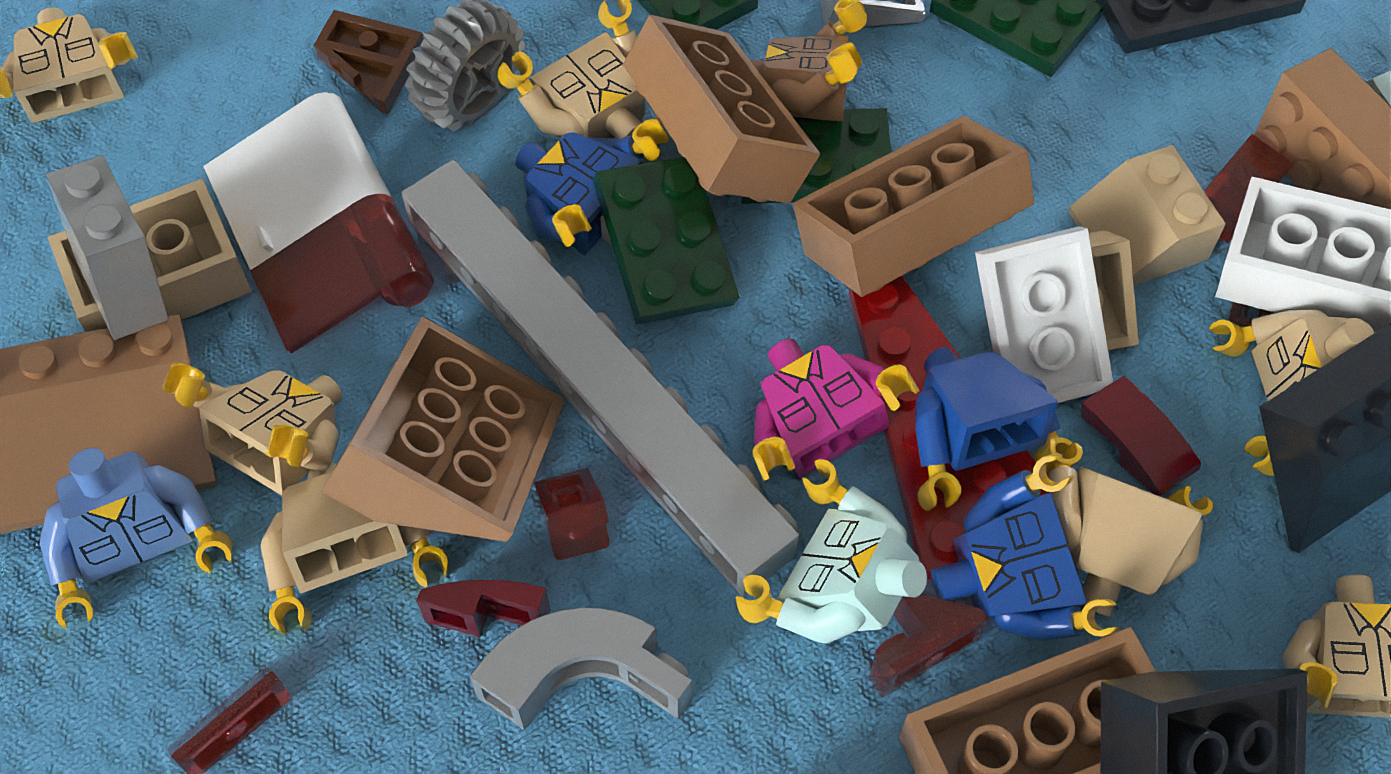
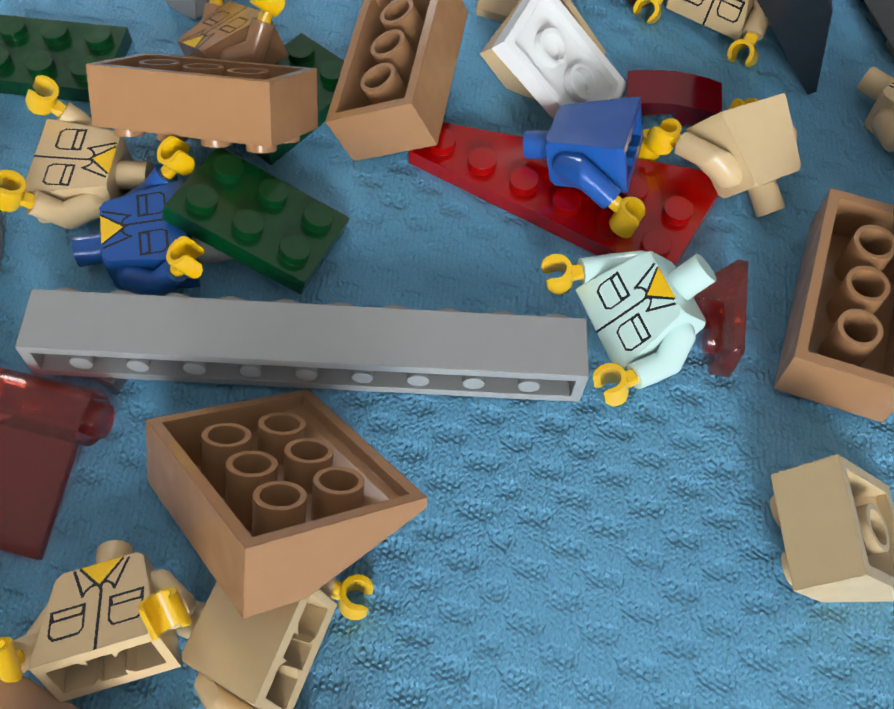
camera: 50 degrees left, 0 degrees up
(468, 603) = (423, 592): dark red slope -> none
(573, 513) = (420, 448): clear red slope -> none
(576, 645) = (518, 581): light grey arch -> none
(821, 406) = (493, 229): dark pink torso -> none
(1019, 562) = (723, 211): blue torso -> none

